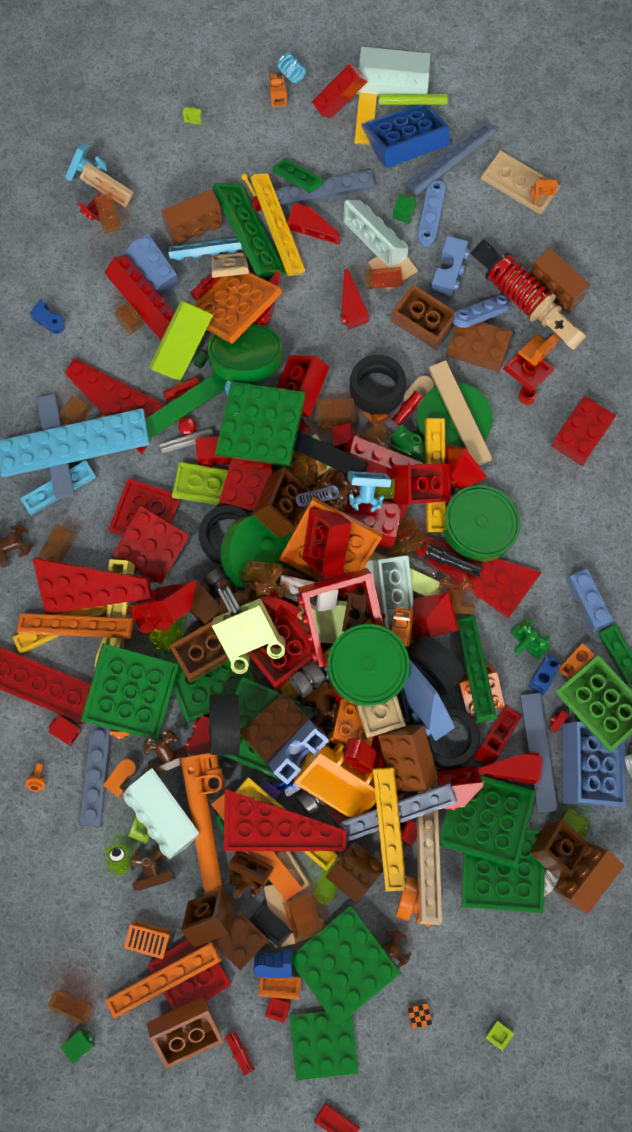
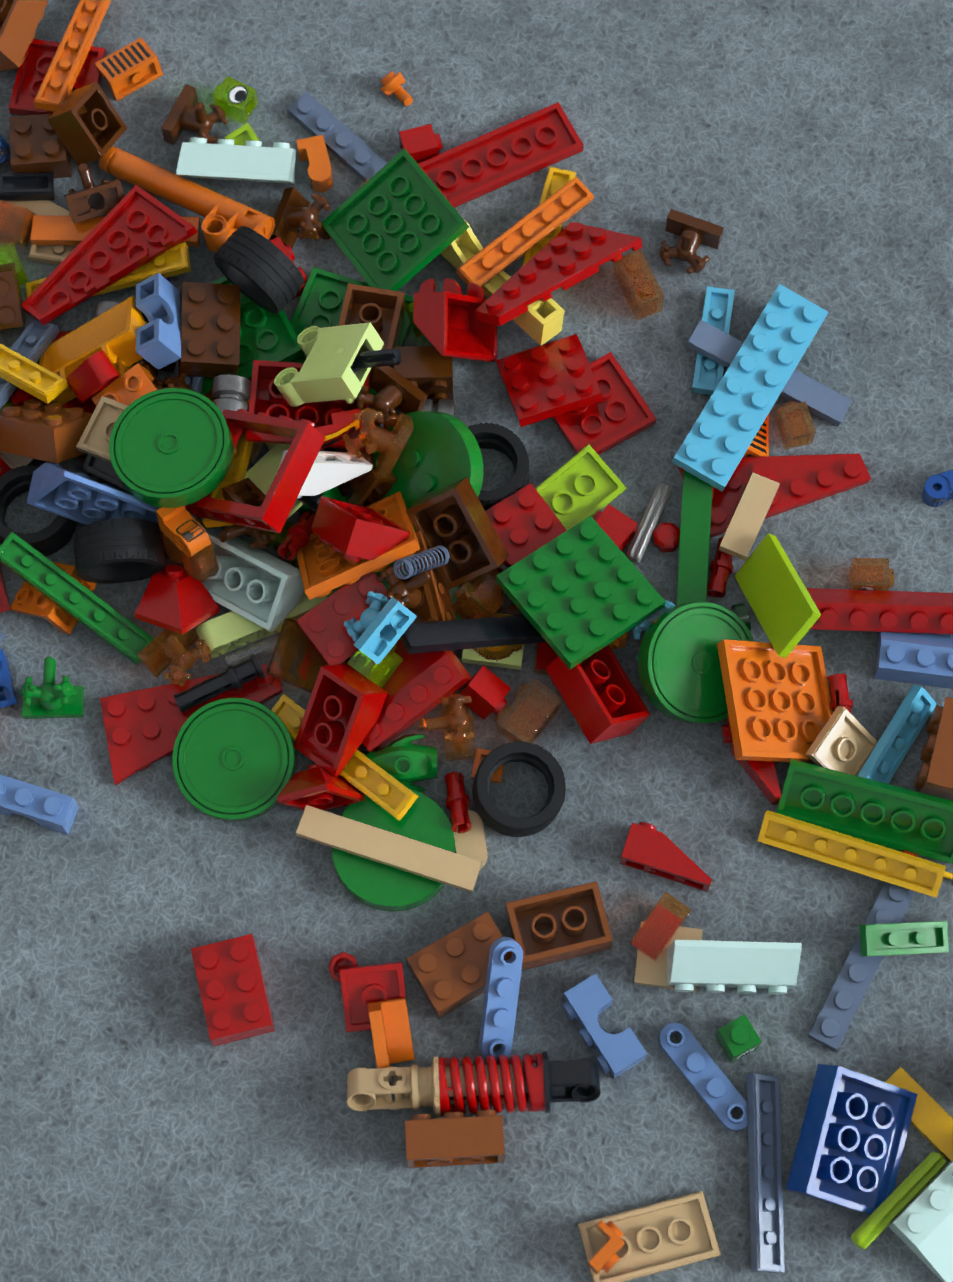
camera: 130 degrees right, 5 degrees down
(145, 391) = (749, 516): none -> tan tile
(308, 222) = (822, 900): red slope -> none

